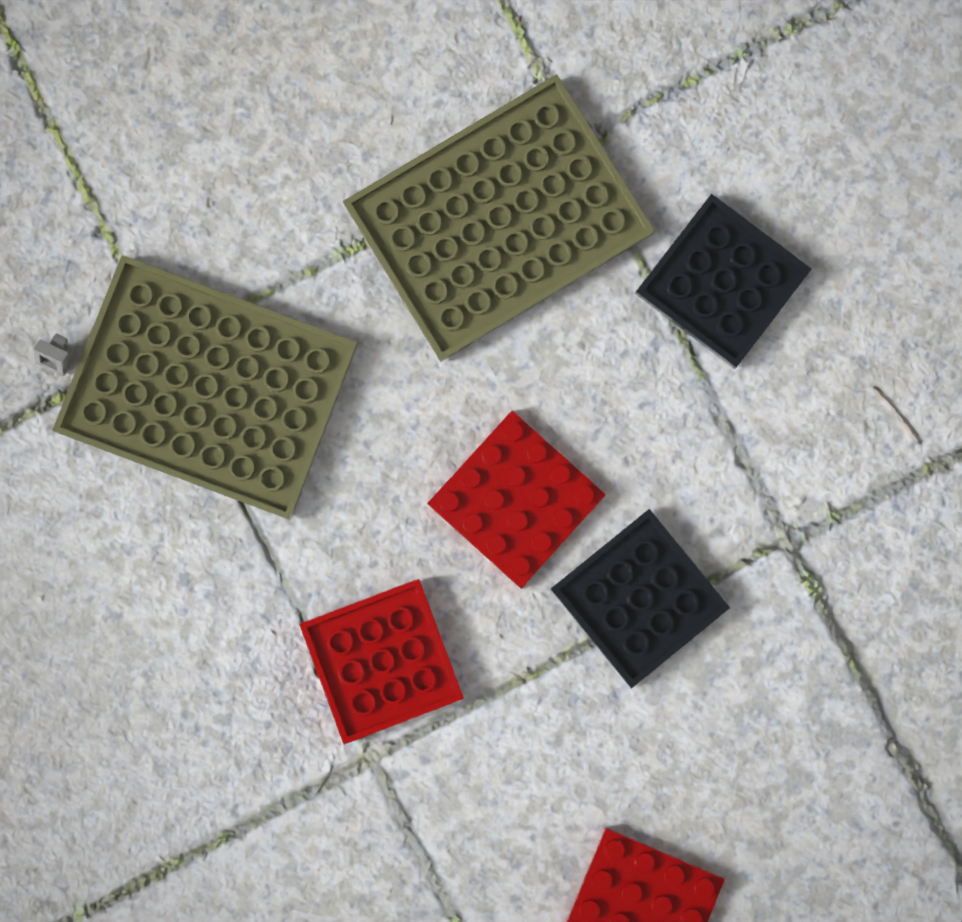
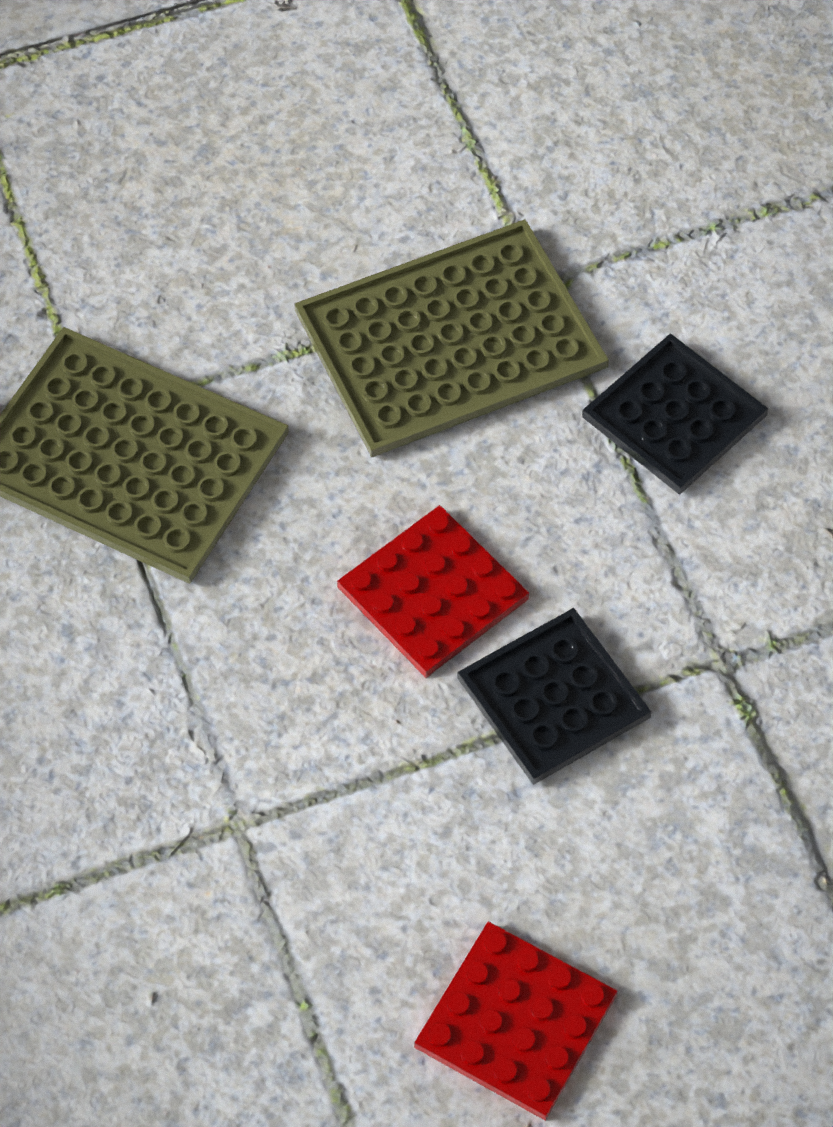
camera: 10 degrees right, 25 degrees down
(381, 661) = (264, 726): red plate -> none

